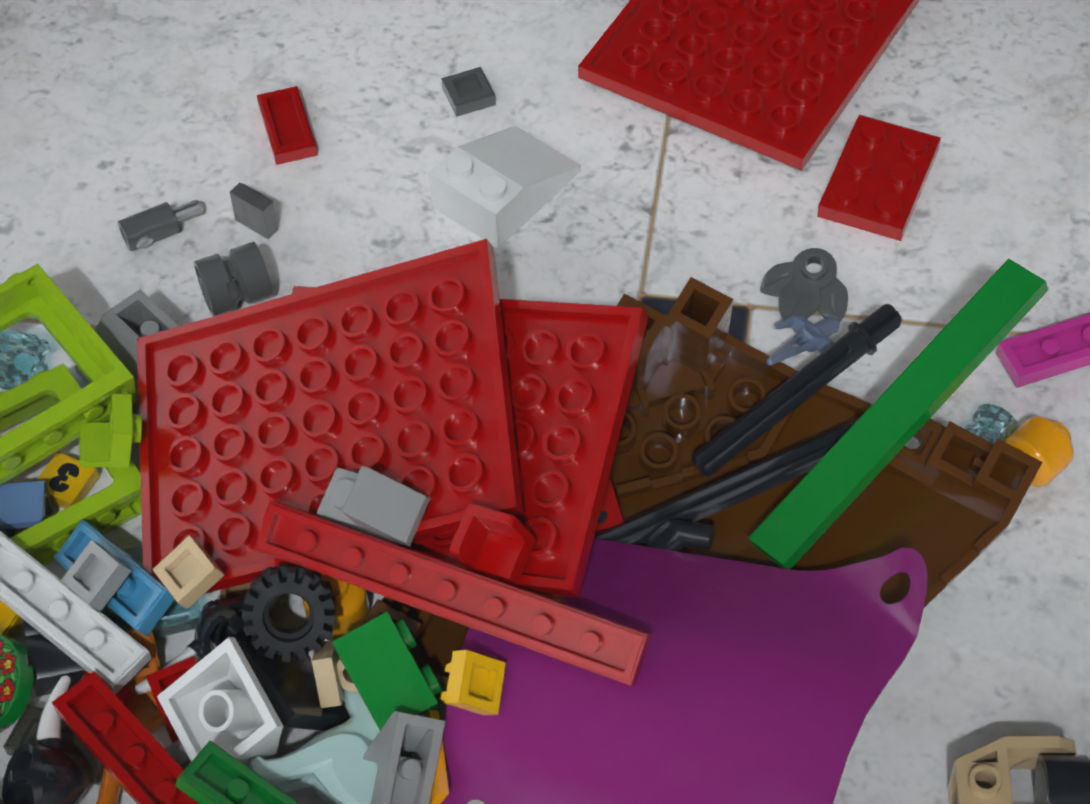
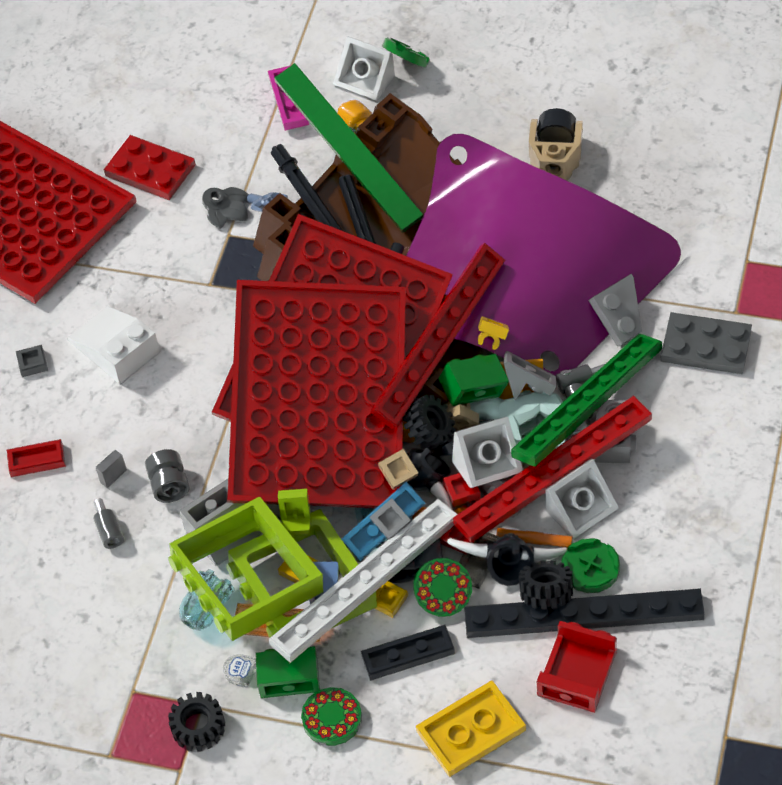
camera: 80 degrees left, 0 degrees up
(373, 505) = (385, 361): light grey slope -> none
(493, 543) = (422, 303): red panel -> none

